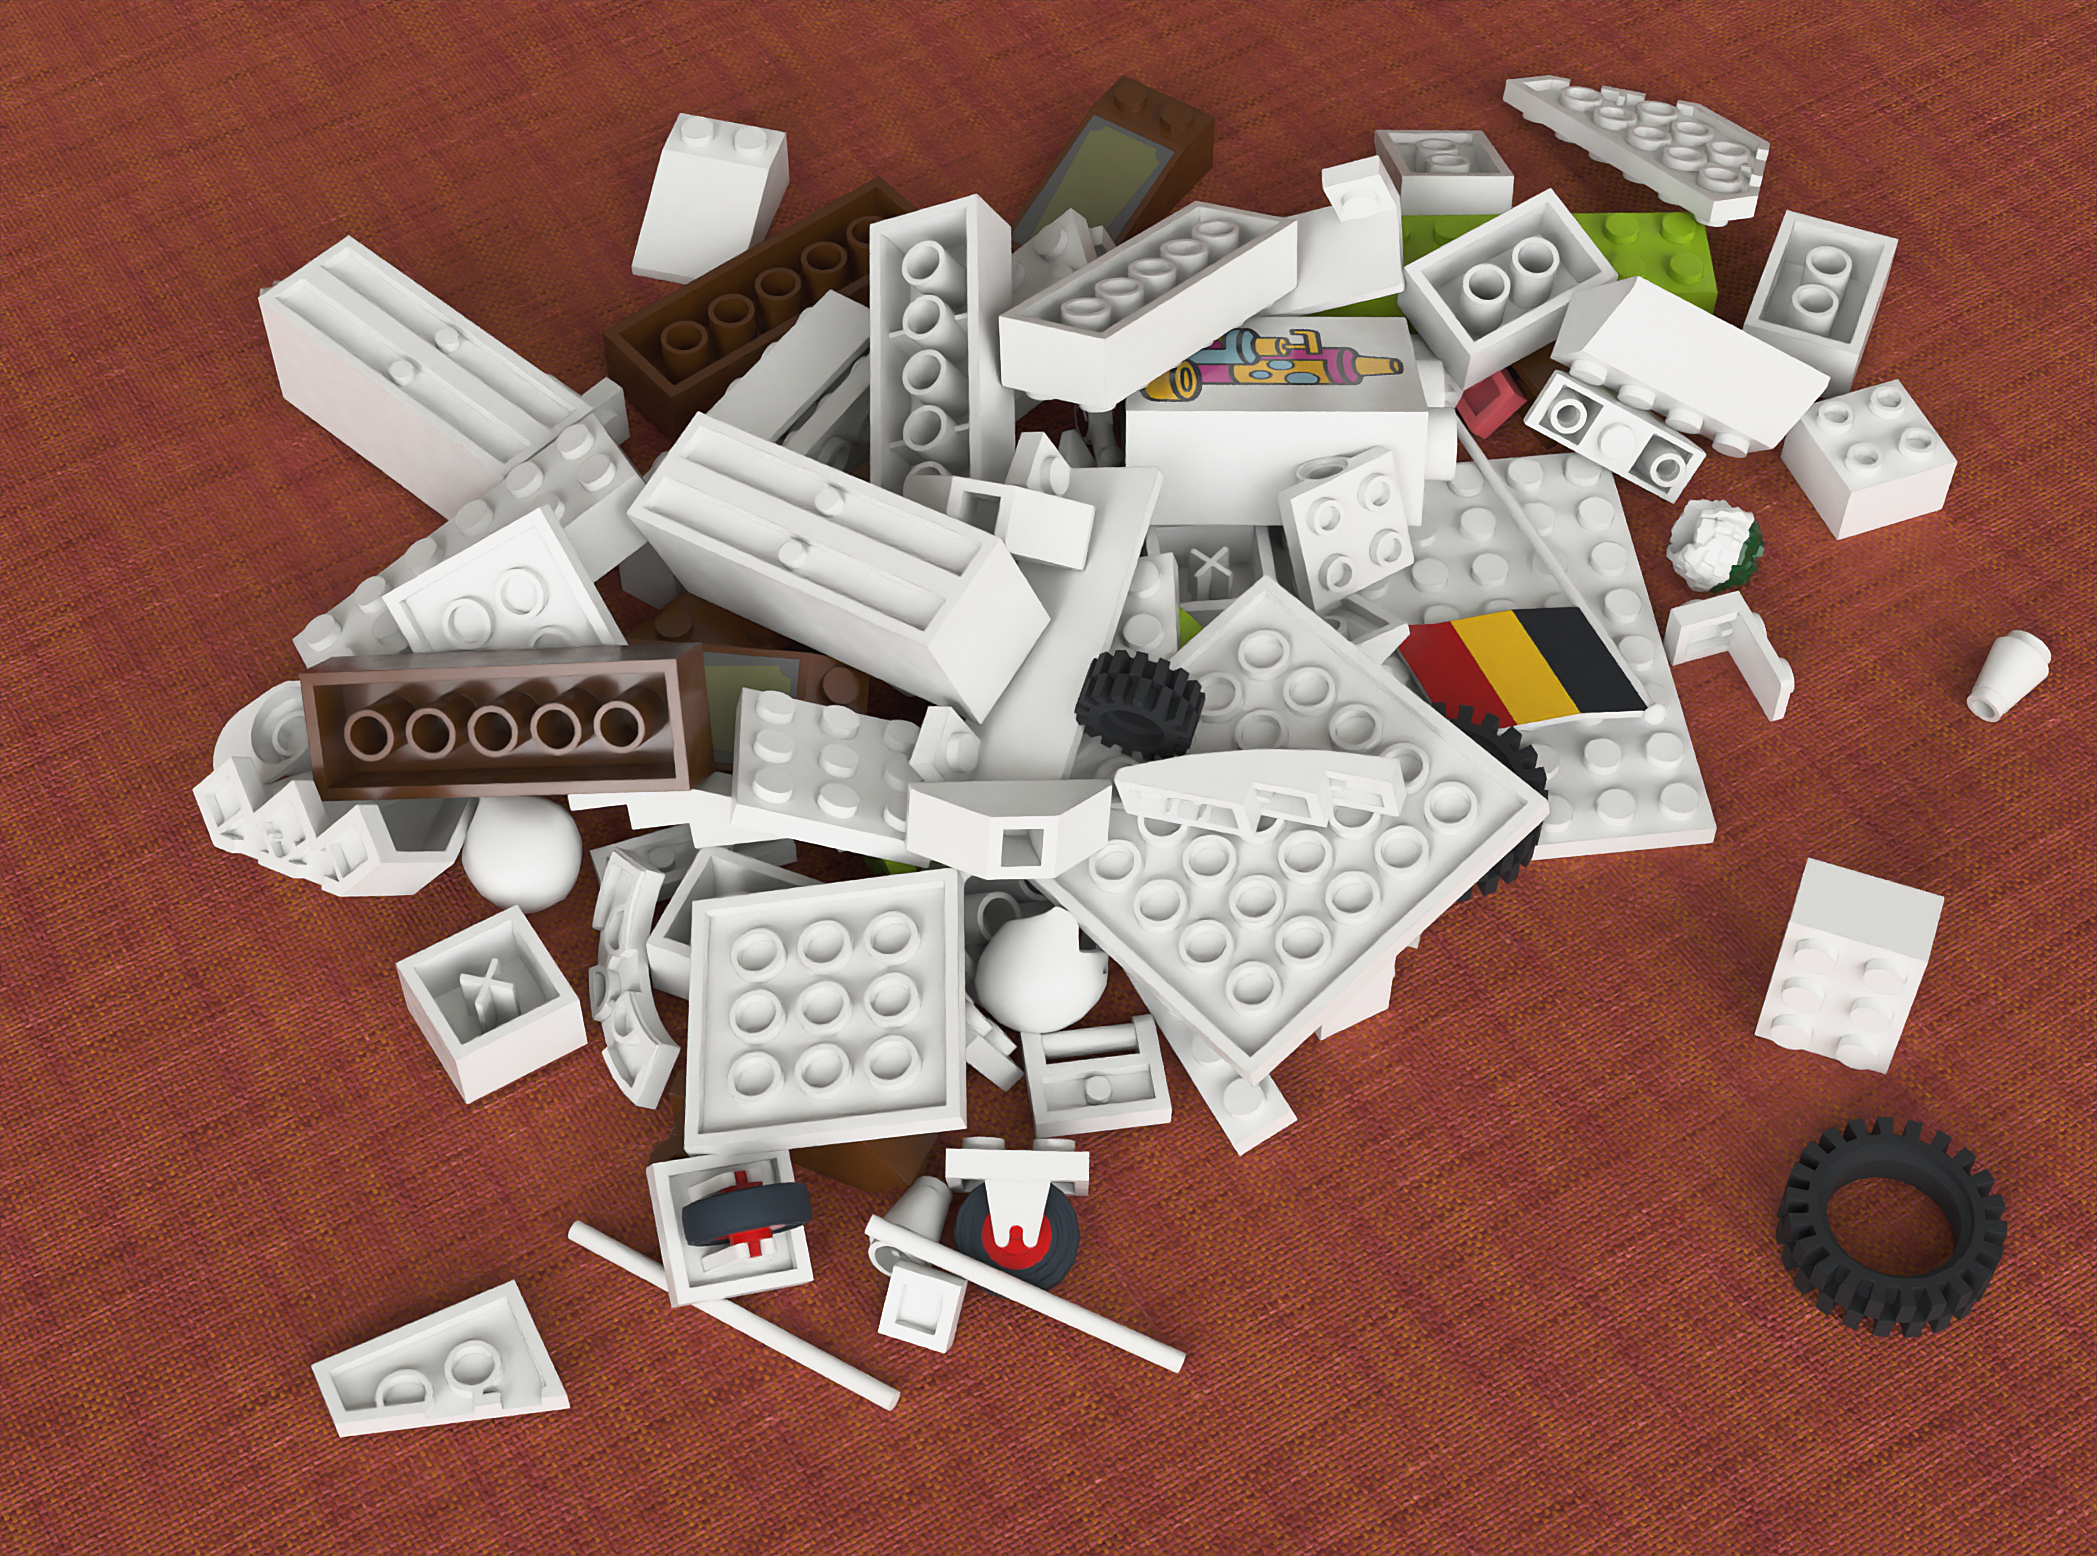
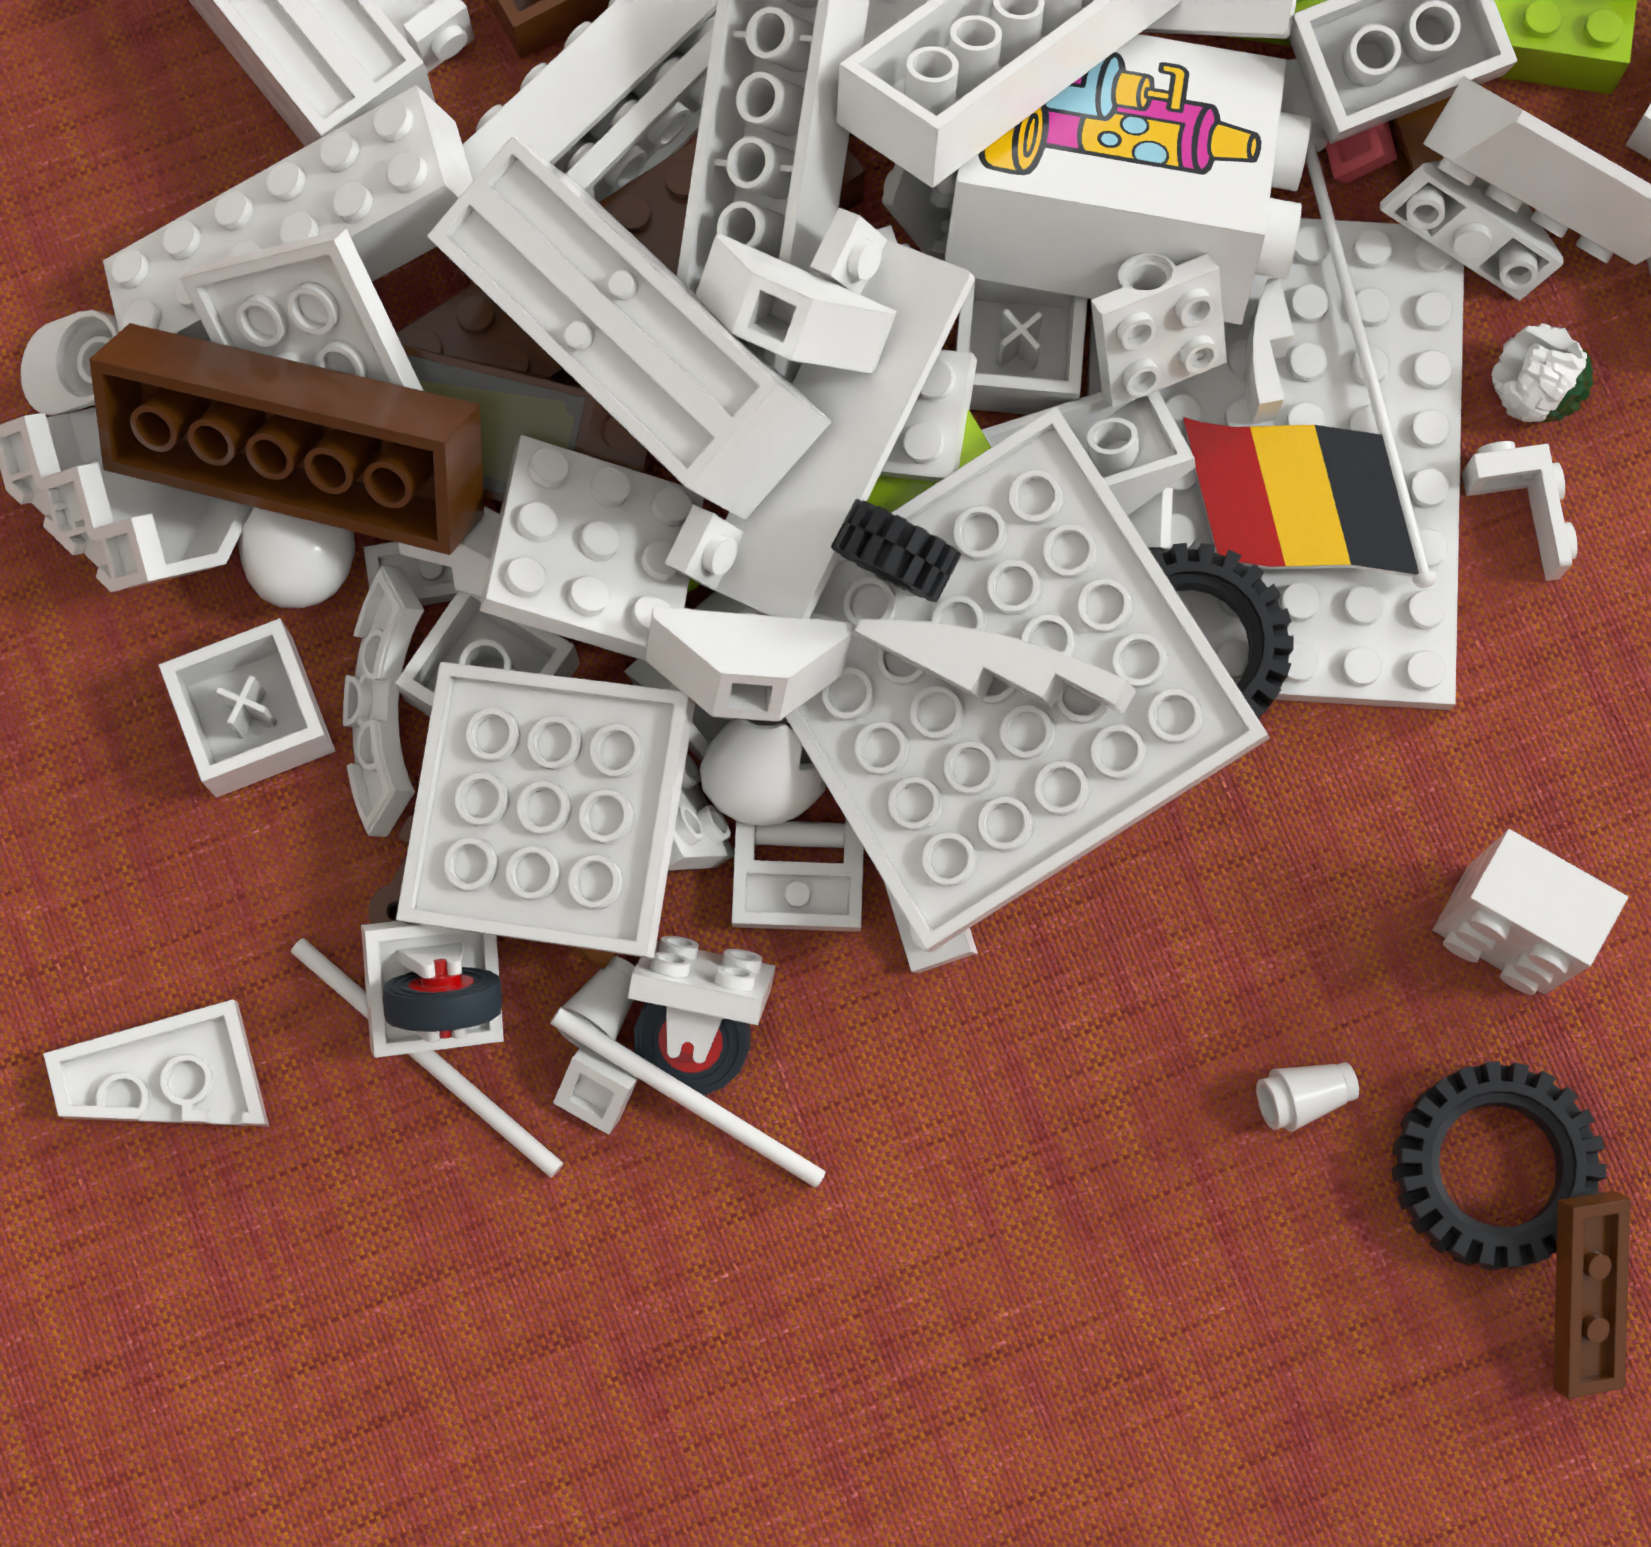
camera: 10 degrees right, 25 degrees up
(1448, 555) = (1267, 340): none -> white slope
(1668, 1193) = (1305, 1093): none -> white cone
(2027, 1318) = (1591, 1294): none -> reddish brown plate

